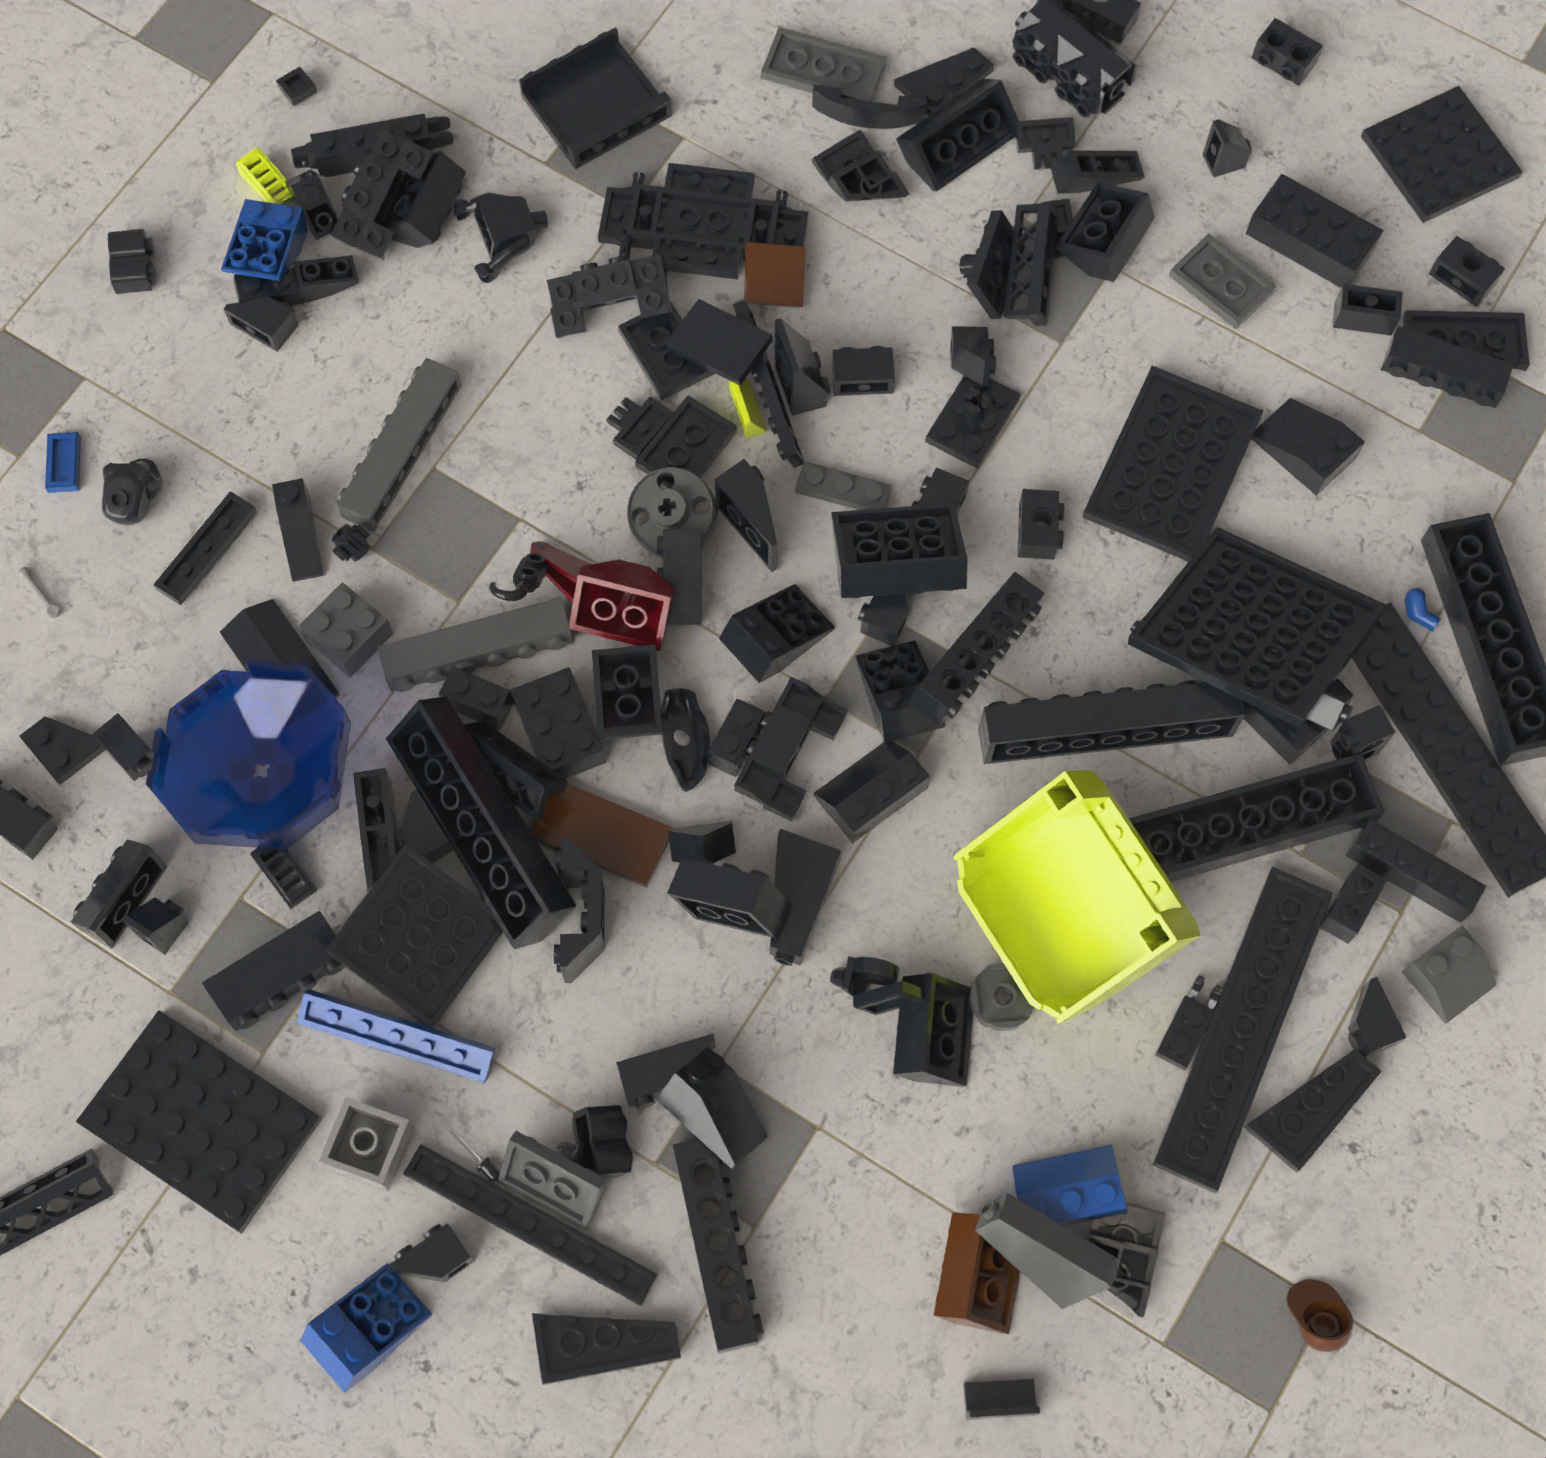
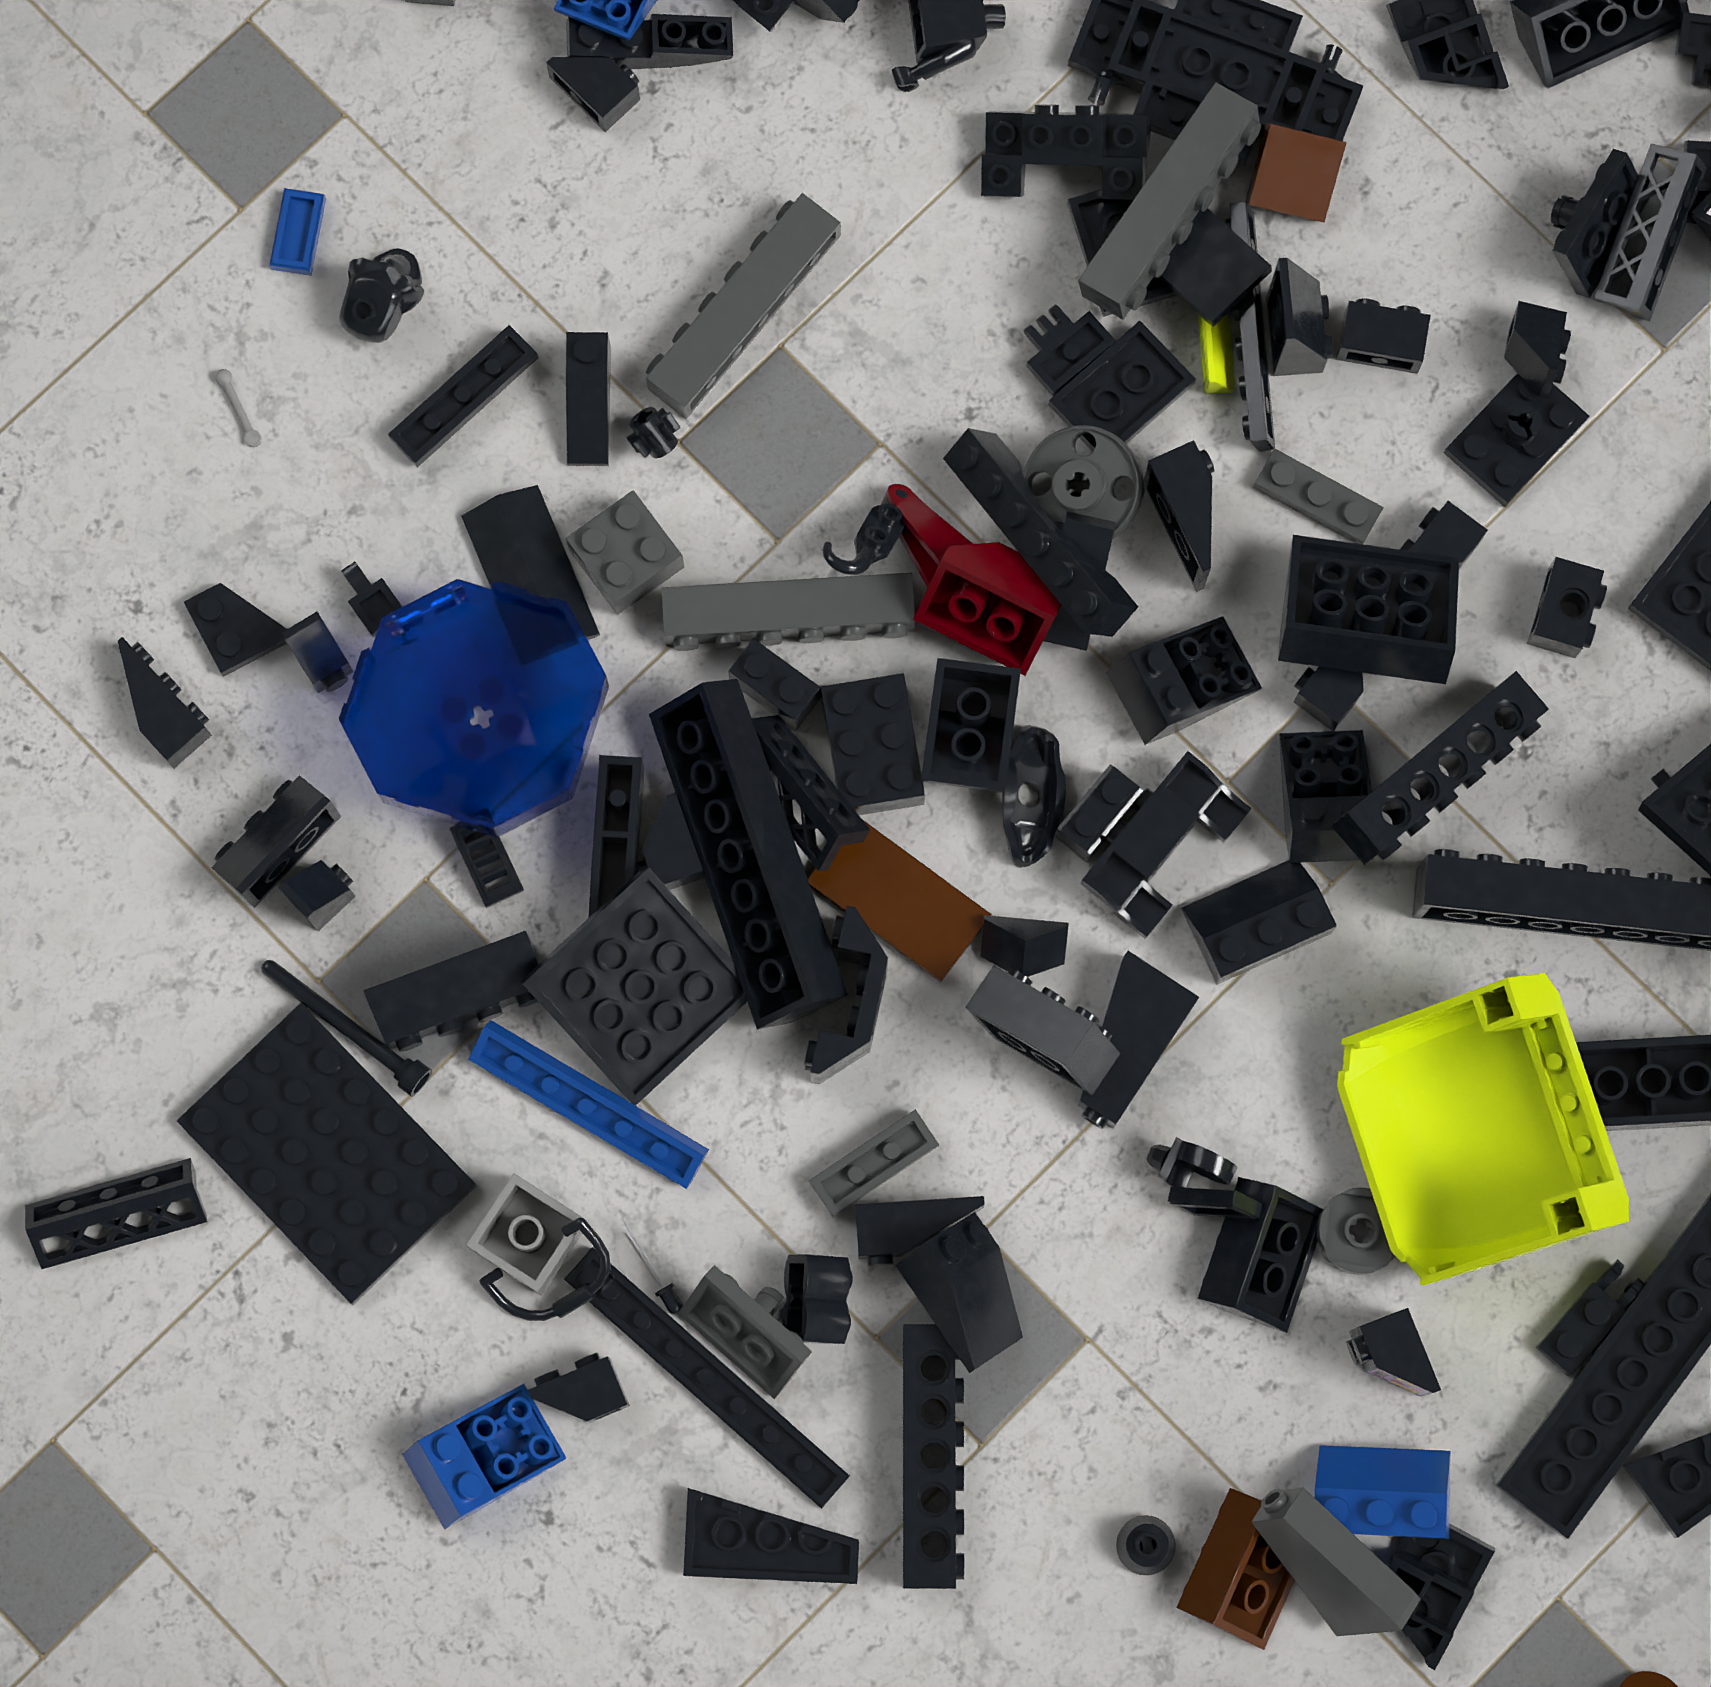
camera: 15 degrees right, 10 degrees up
(158, 701) = (372, 600): none -> black plate
(252, 1044) = (409, 1073): none -> black piece
(411, 1189) = (569, 1302): none -> black piece
(624, 1030) = (874, 1163): none -> dark grey plate
(673, 566) = (1076, 581): none -> black arch
(689, 307) = (1170, 201): none -> dark grey brick
(905, 1283) = (1144, 1530): none -> black cone
(1051, 1079) = (1394, 1353): none -> black slope

